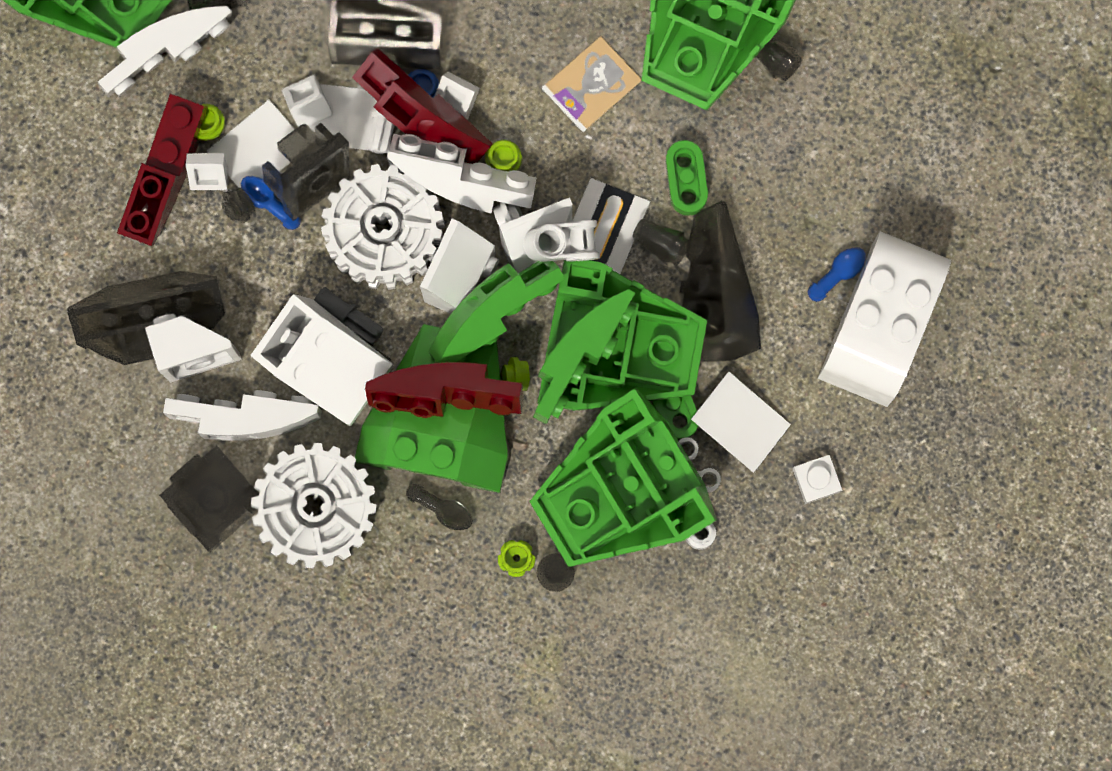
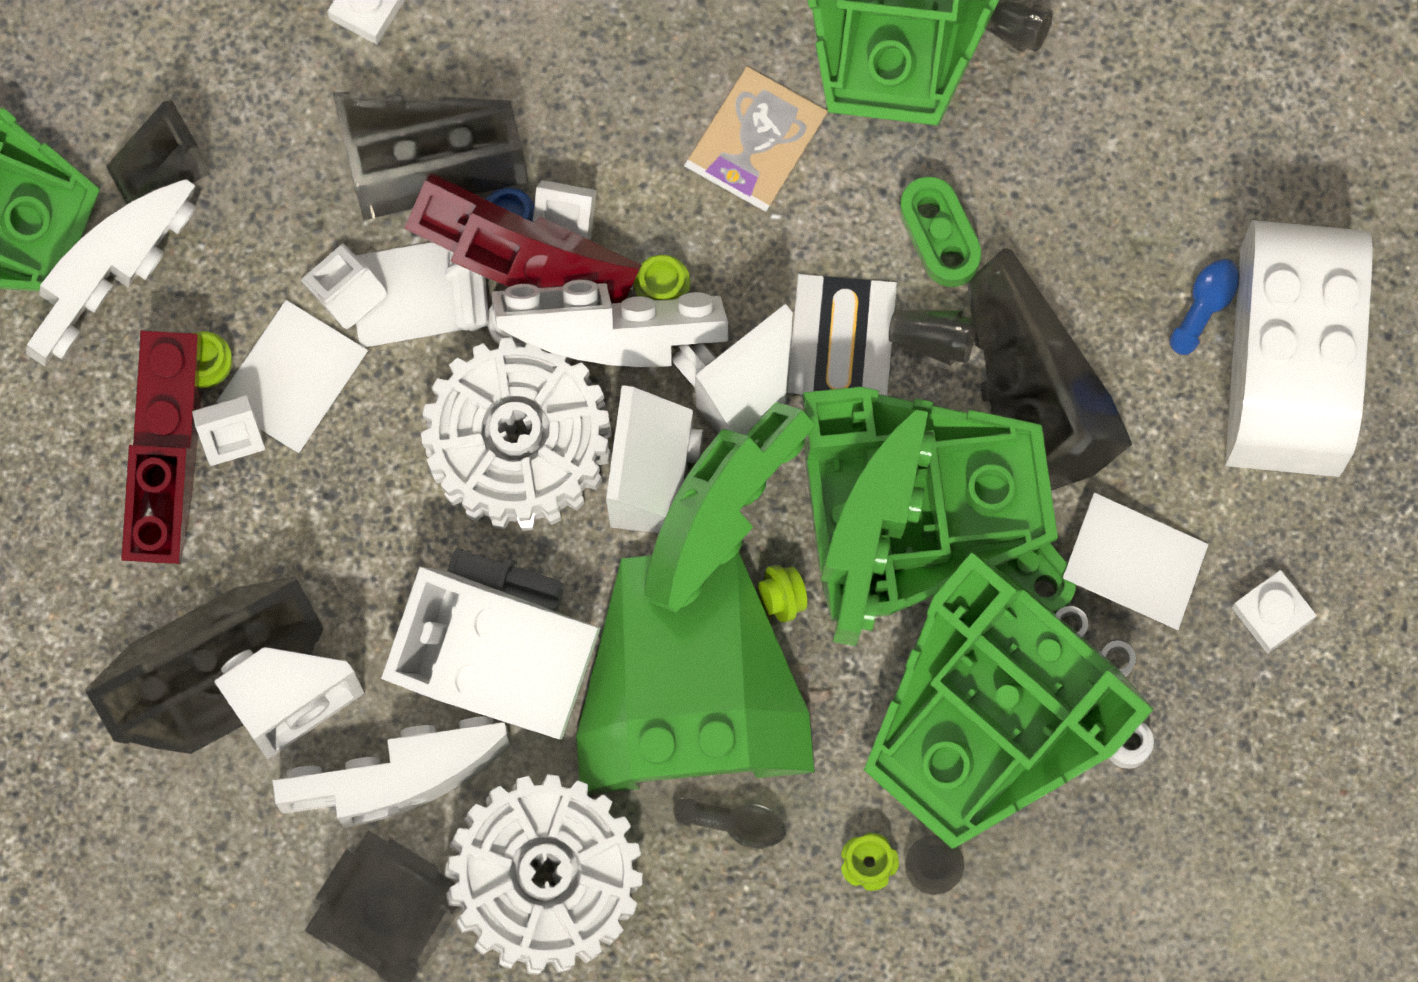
camera: 15 degrees left, 5 degrees down
(237, 205) = (289, 466): clear smoke plate -> none
(265, 198) = (321, 442): blue piece -> none
(318, 167) = (397, 373): clear smoke panel -> none
(429, 387) = (665, 643): dark red slope -> none
(569, 242) = (805, 368): white piece -> none

